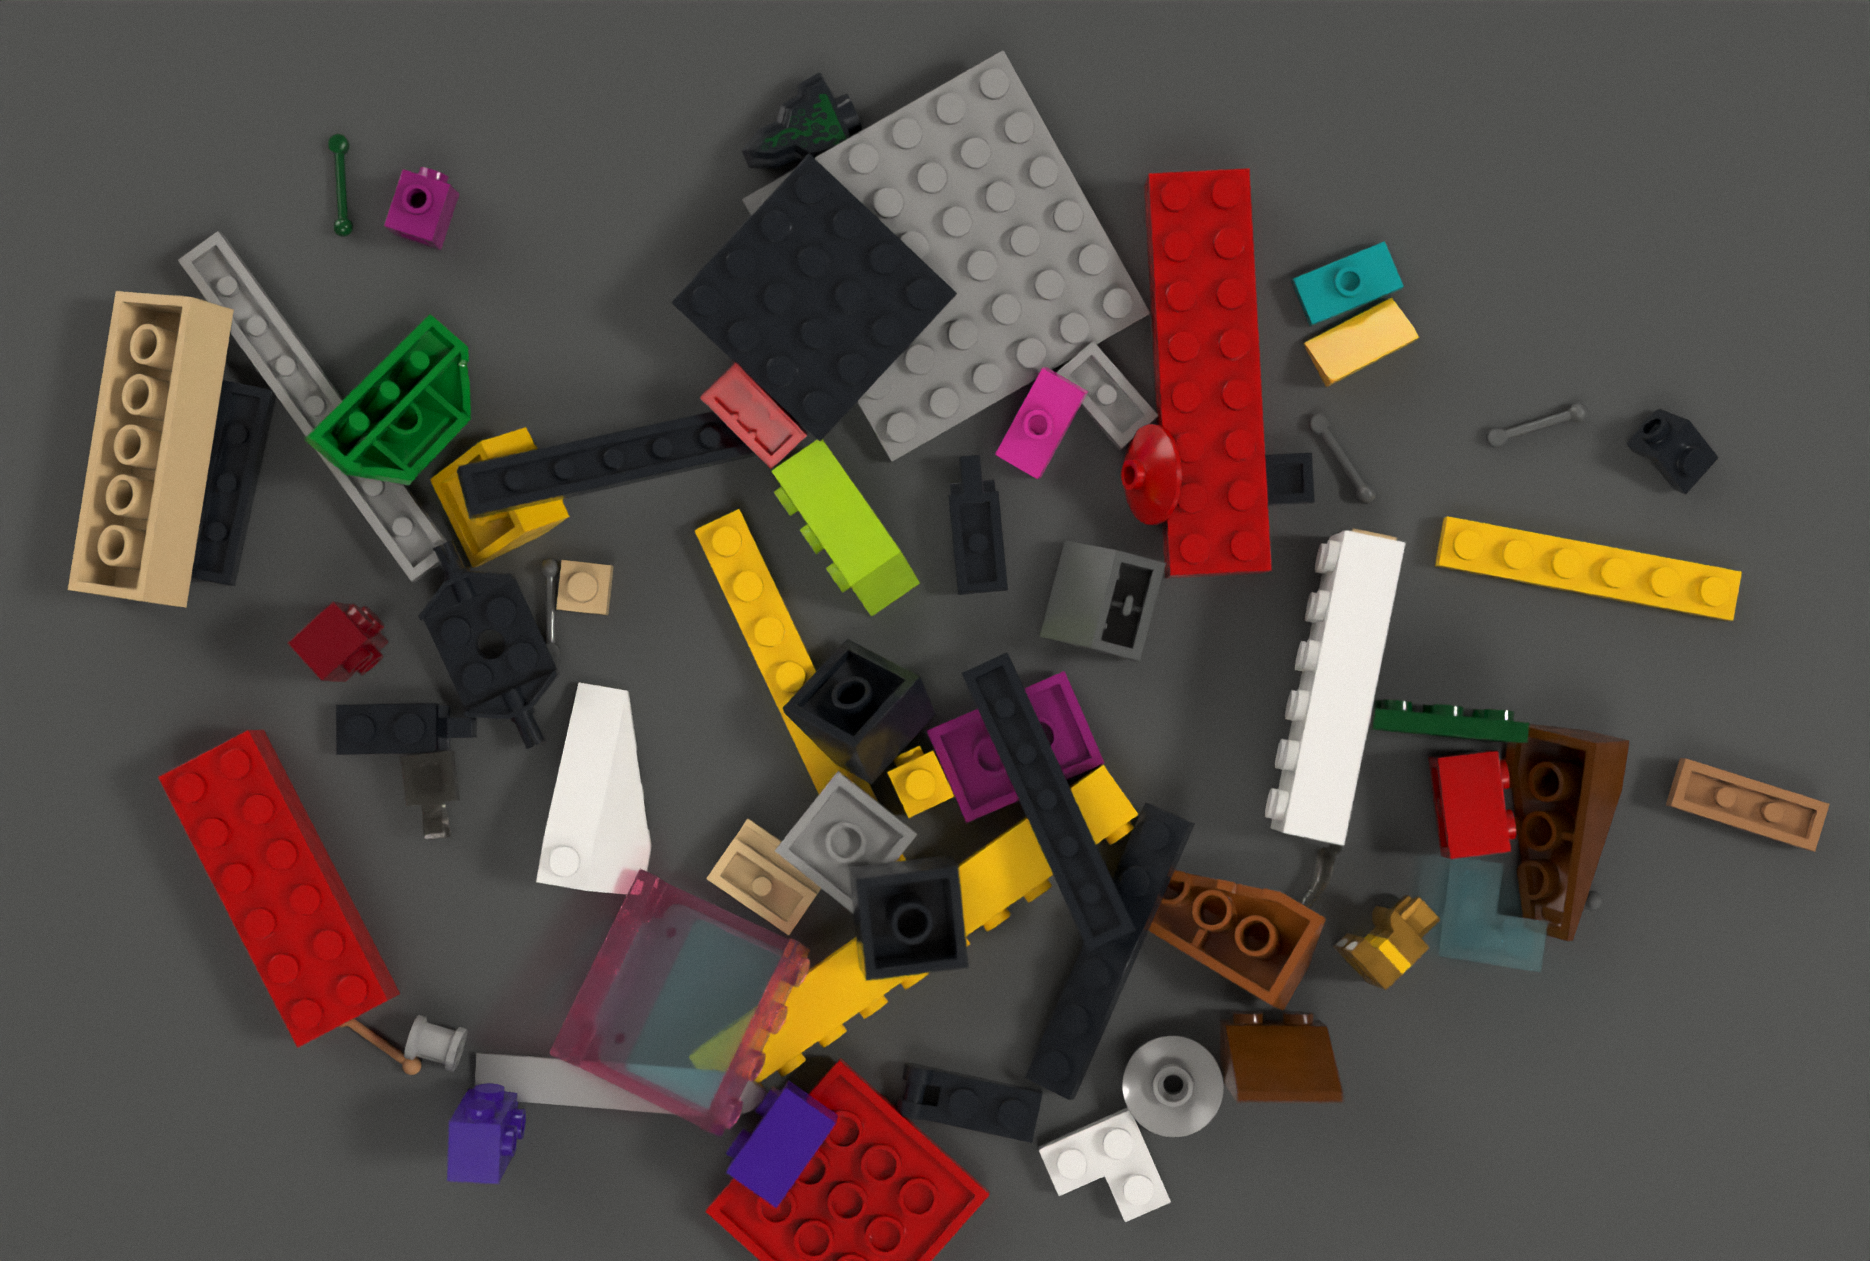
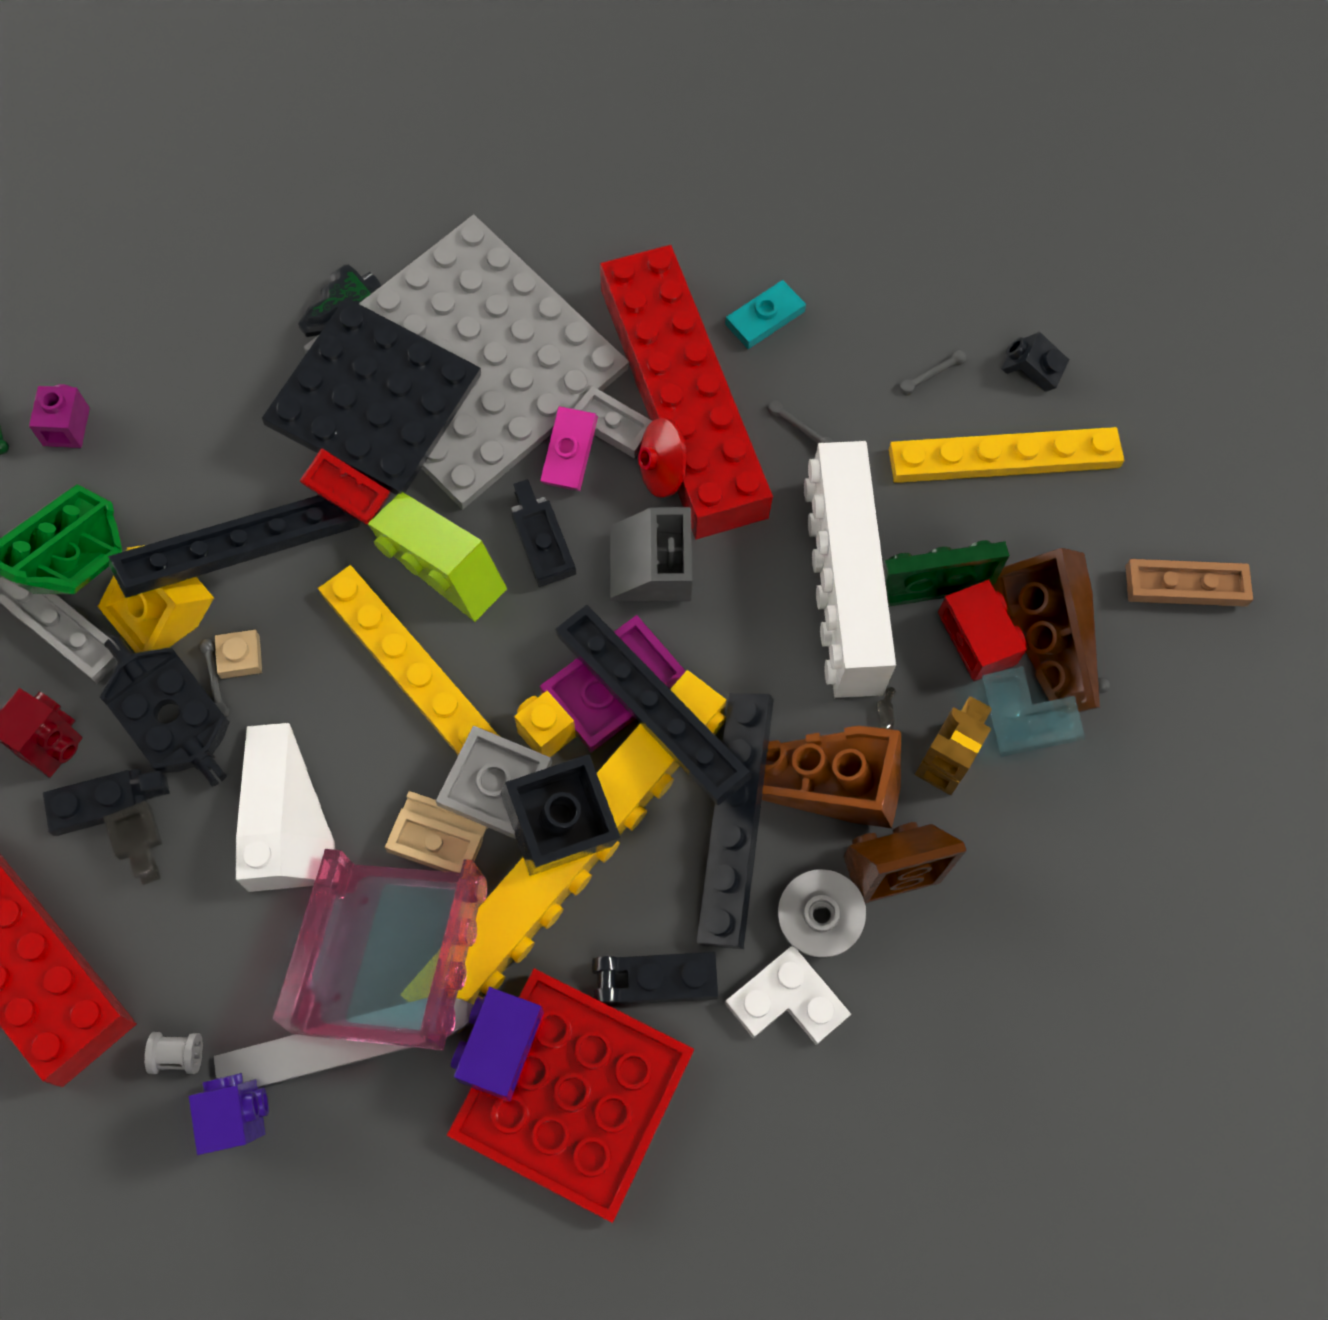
camera: 20 degrees left, 20 degrees down
(410, 1067) = (155, 1083): medium nougat hinge -> none
(861, 710) = (483, 679): black slope -> none
(1290, 479) = (769, 444): black plate -> none
(1360, 341) = (788, 348): yellow slope -> none

